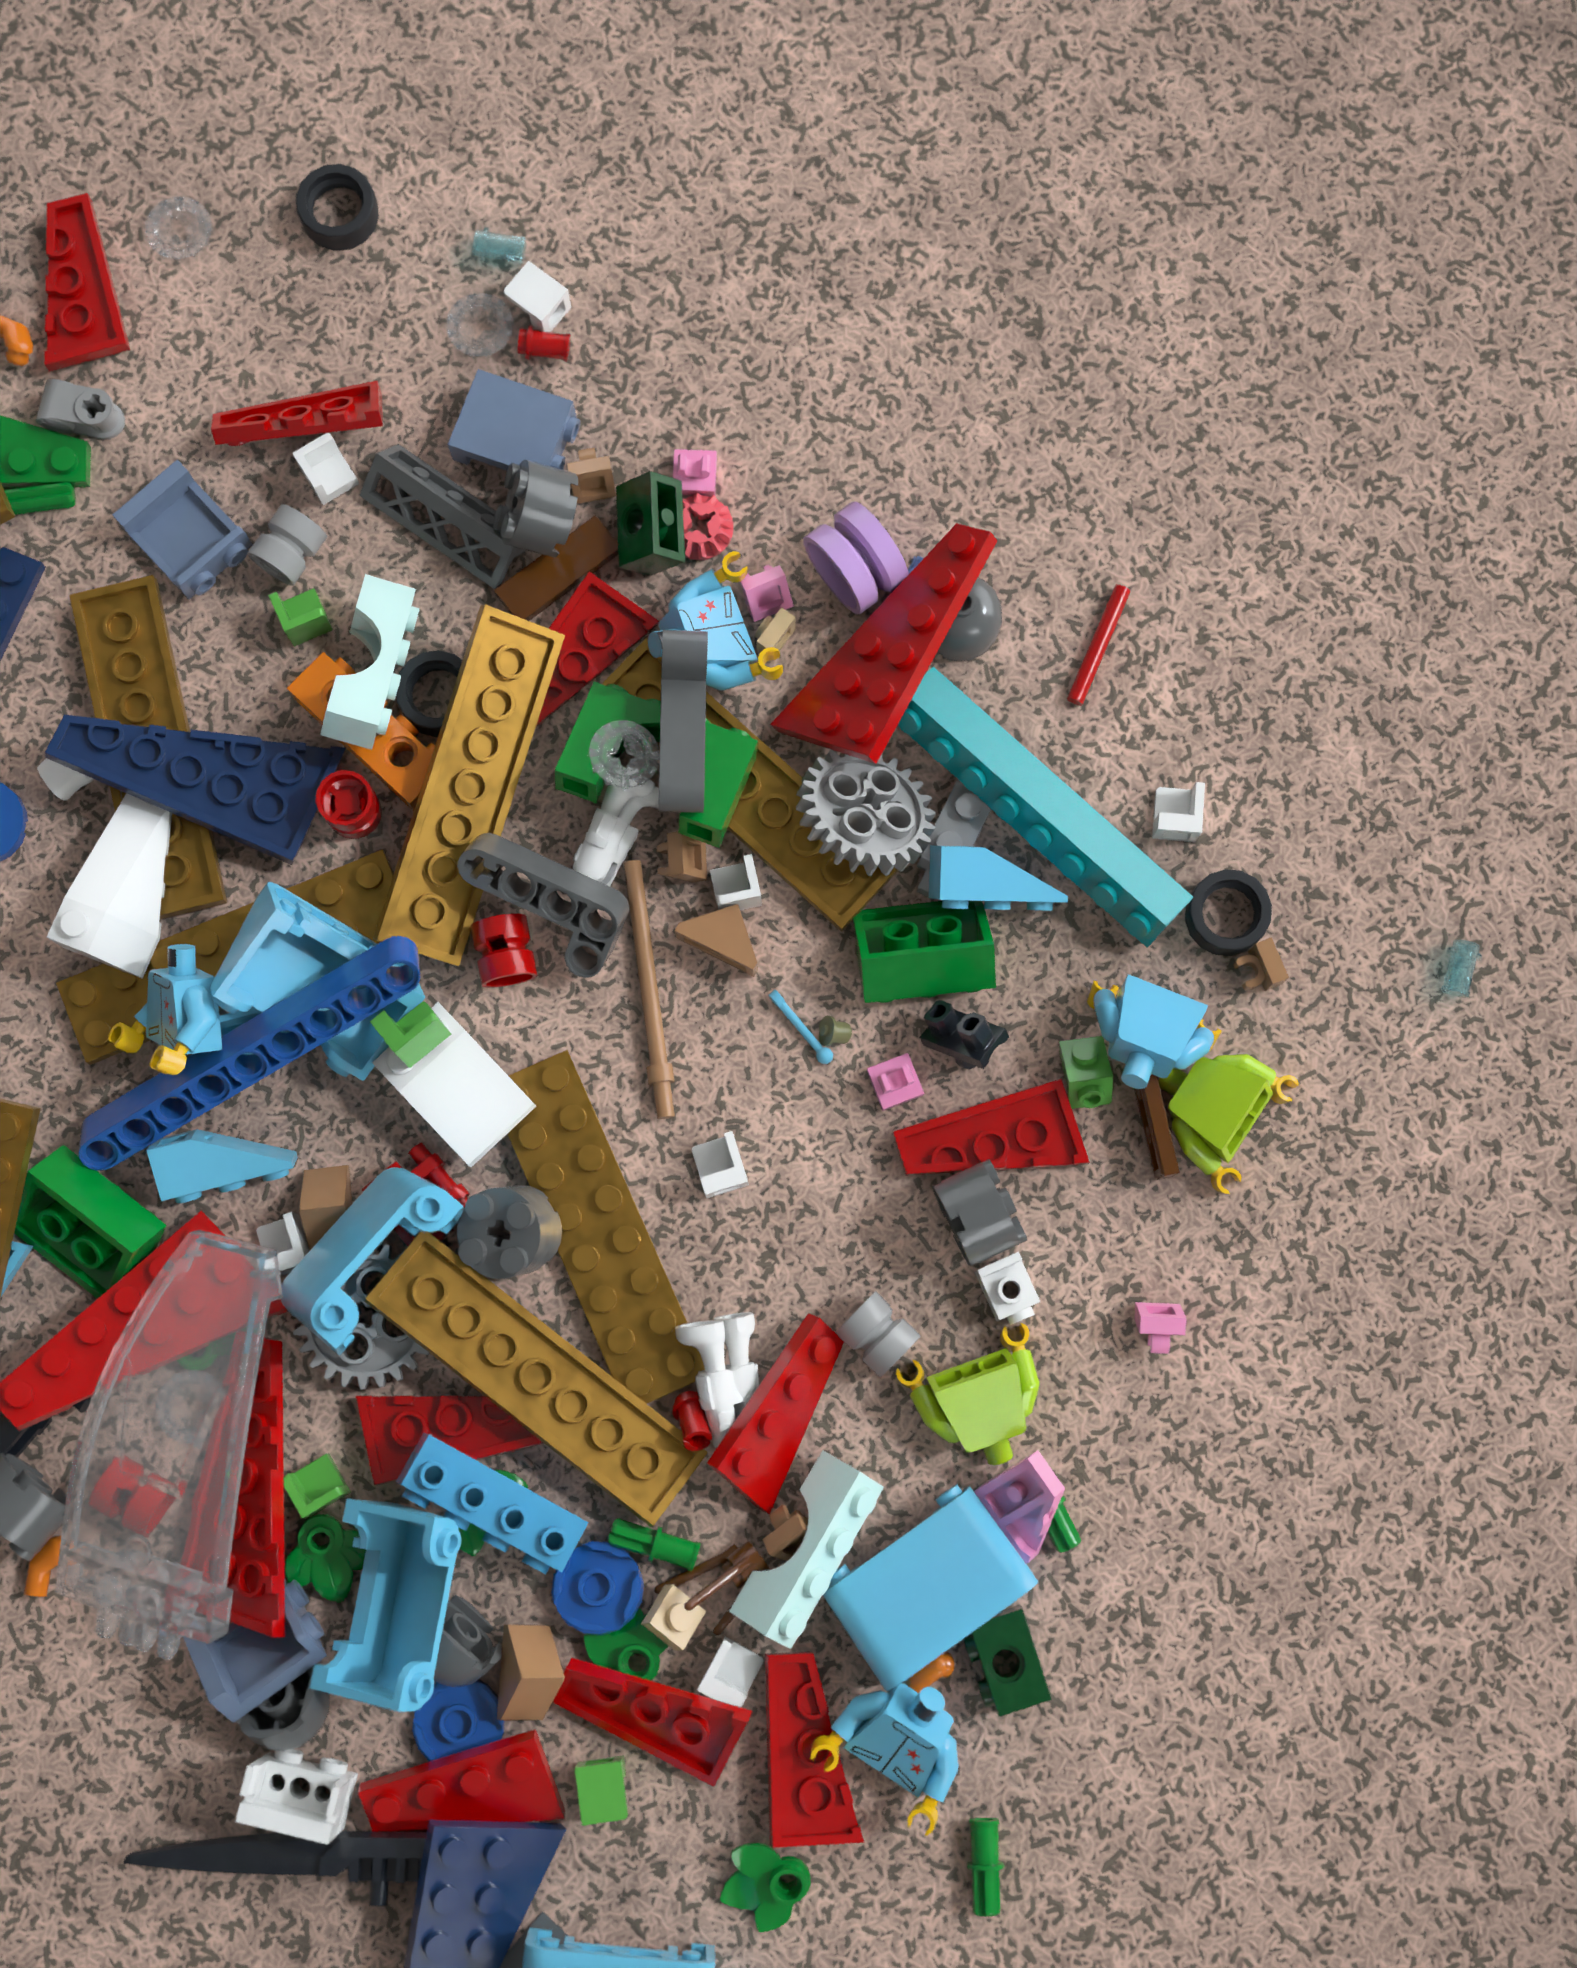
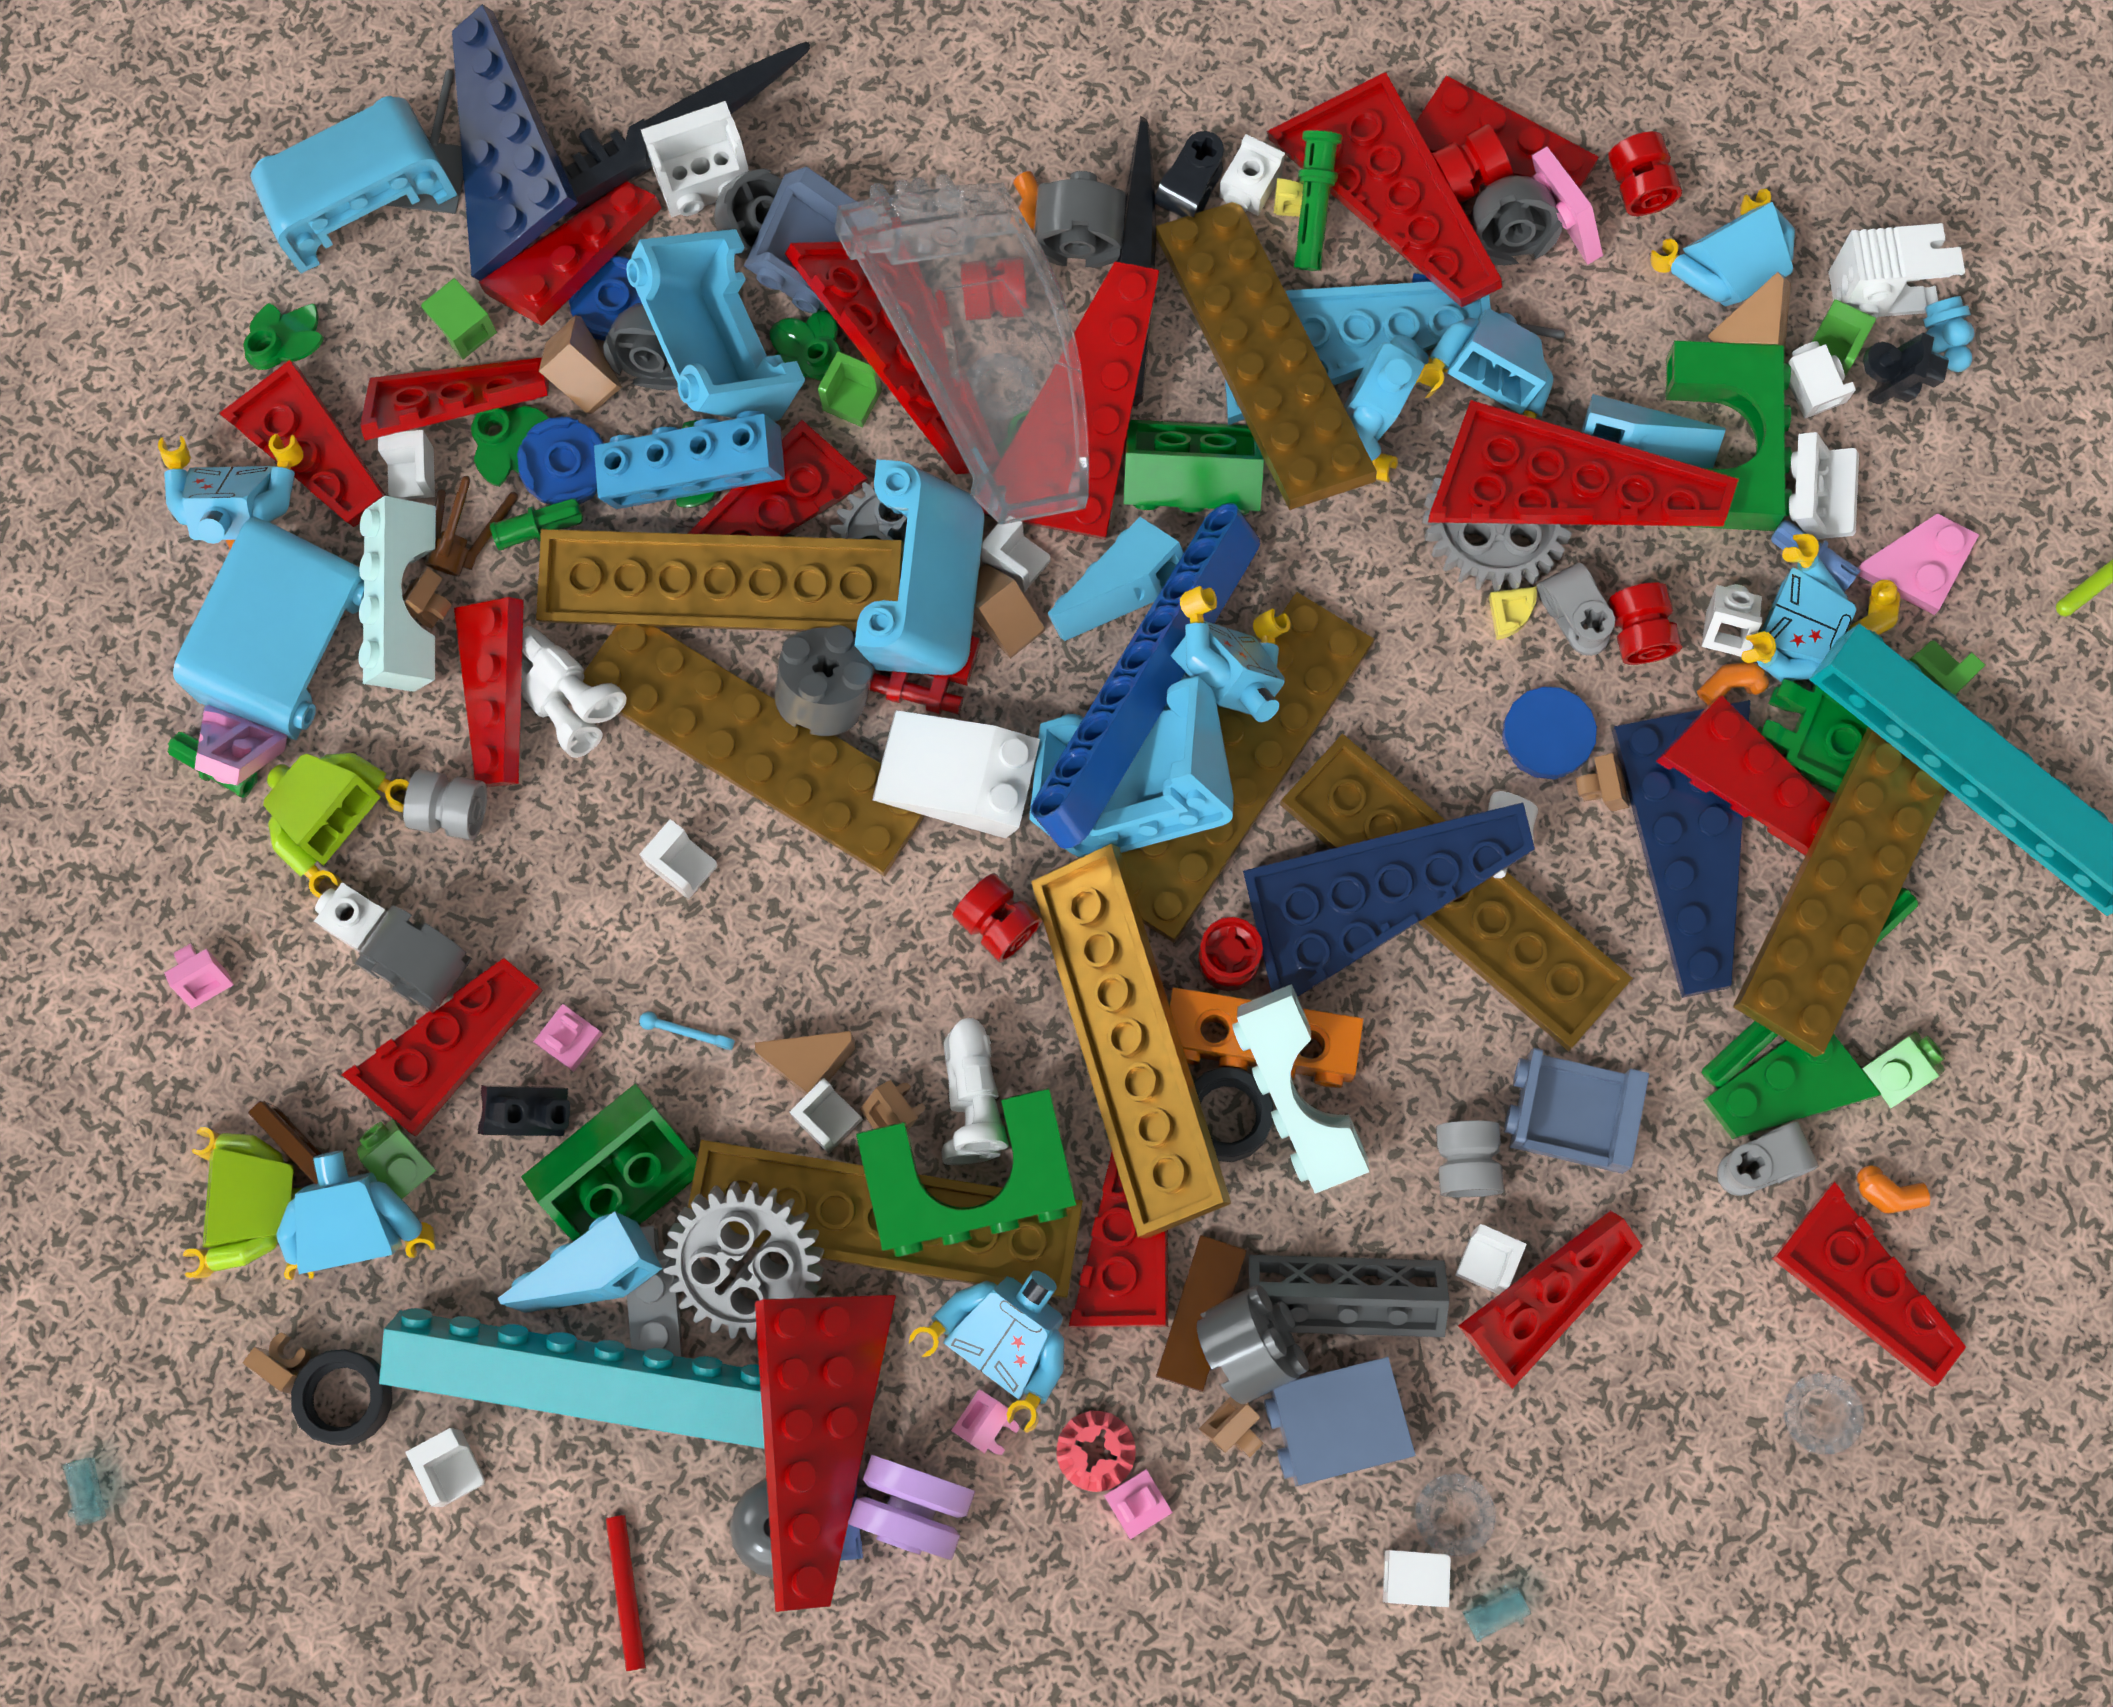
camera: 150 degrees right, 5 degrees down
(119, 891) = (1370, 734): white wedge -> none
(301, 616) = (1409, 1104): bright green panel -> none
(334, 177) = (1722, 1528): black tyre -> none
(413, 1034) = (1016, 776): bright green panel -> none
(542, 896) = (986, 985): dark grey beam -> none
(543, 344) = (1378, 1537): red pin -> none
(637, 743) = (970, 1139): clear gear -> none
(650, 523) = (1138, 1412): dark green brick -> none
(660, 1072) = (788, 908): medium nougat bar -> none
(670, 1619) = (486, 475): tan plate -> none
(683, 721) = (954, 1205): dark grey beam -> none
(692, 1421) = (564, 633): red pin -> none
(775, 631) = (948, 1384): tan plate -> none
(833, 1031) = (653, 1046): olive piece -> none
(985, 1866) = (107, 458): green axle -> none
(1026, 1682) = (155, 602): dark green brick -> none

